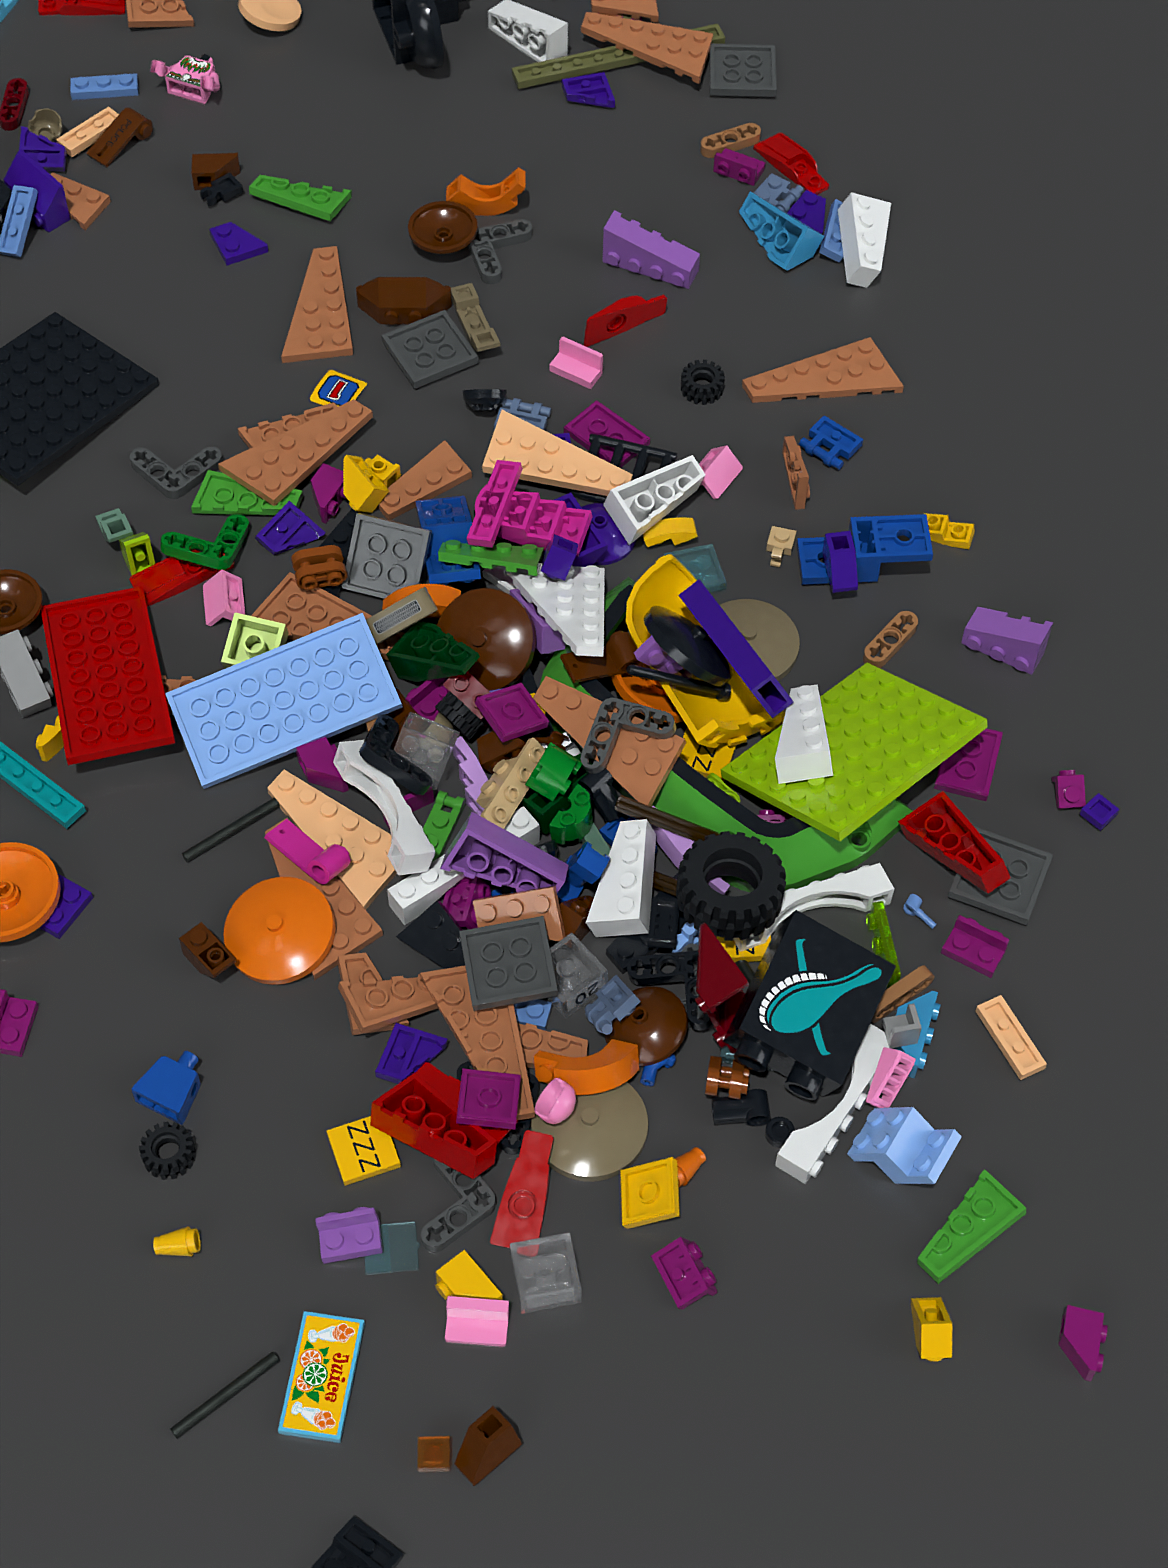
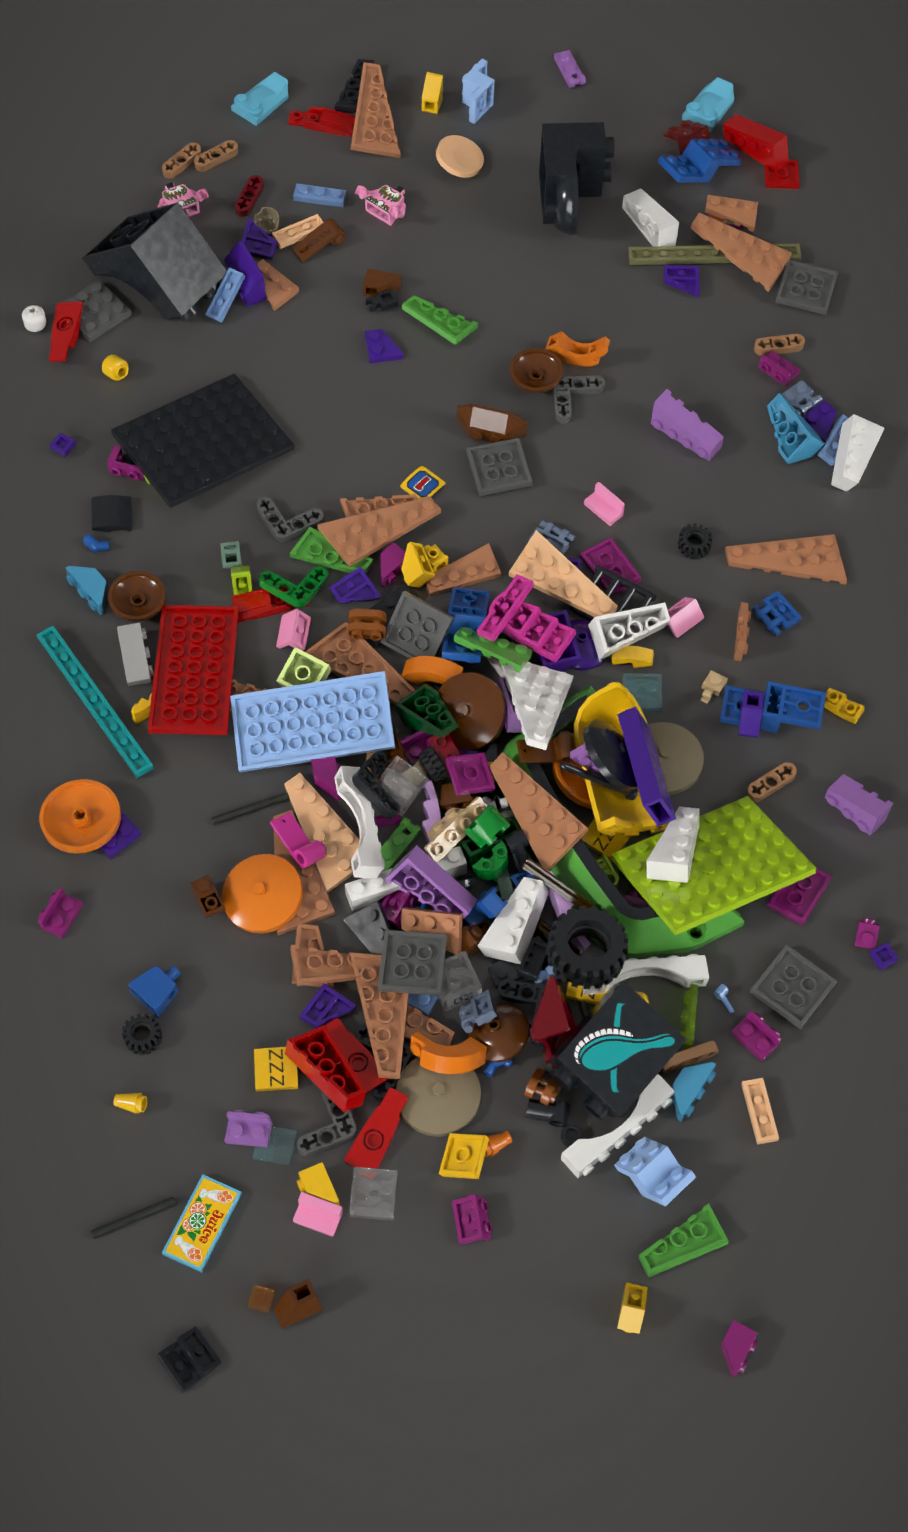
camera: 15 degrees right, 5 degrees up
(320, 317) = (426, 422): nougat wing -> none
(401, 615) = (412, 678): dark tan beam -> none
(472, 318) = (538, 449): dark tan slope -> none
(484, 398) = (527, 517): black piece -> none
(488, 1099) = (369, 1058): magenta tile -> none
(555, 738) = (496, 801): reddish brown hand -> none
(555, 1102) = (416, 1073): bright pink hair -> none
(559, 557) = (538, 663): dark purple slope -> none
(622, 316) = (649, 474): red piece -> none
(622, 720) = (544, 802): dark grey beam -> none
(792, 162) = (821, 373): red piece -> none
(889, 1077) = (664, 1114): bright pink slope -> none
(902, 1029) = (679, 1085): light grey panel -> none
(951, 839) = (761, 948): red wedge -> none

